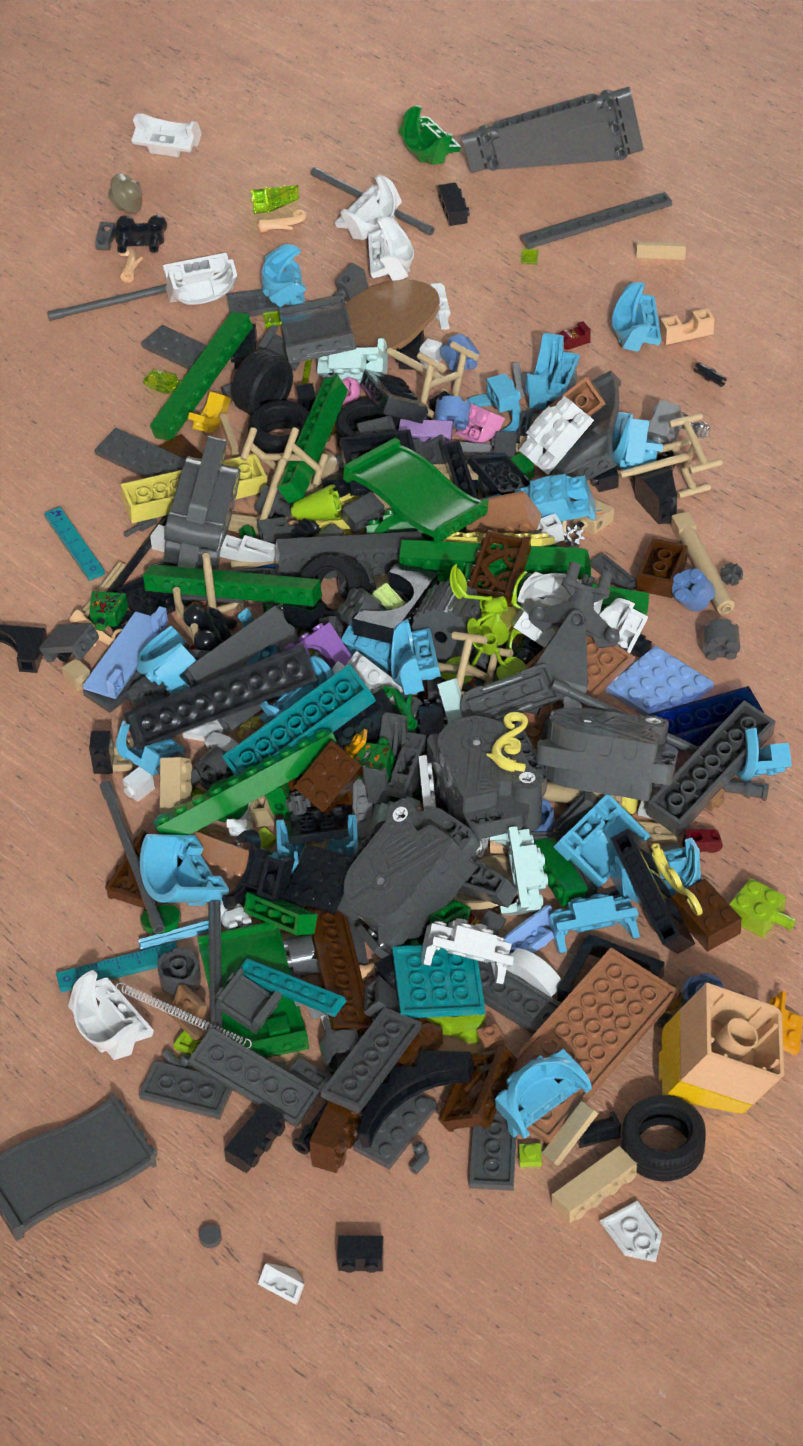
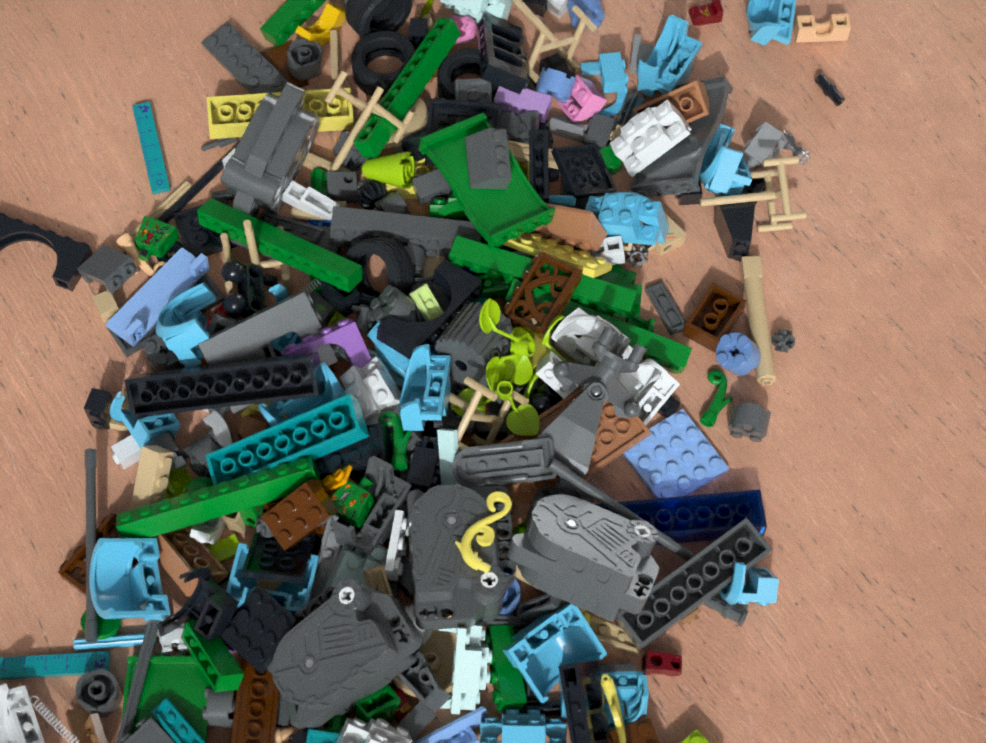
camera: 10 degrees right, 15 degrees up
(197, 436) = (304, 59): none -> dark grey brick
(414, 470) = (488, 159): none -> dark grey slope
(682, 647) = (718, 402): none -> green plant

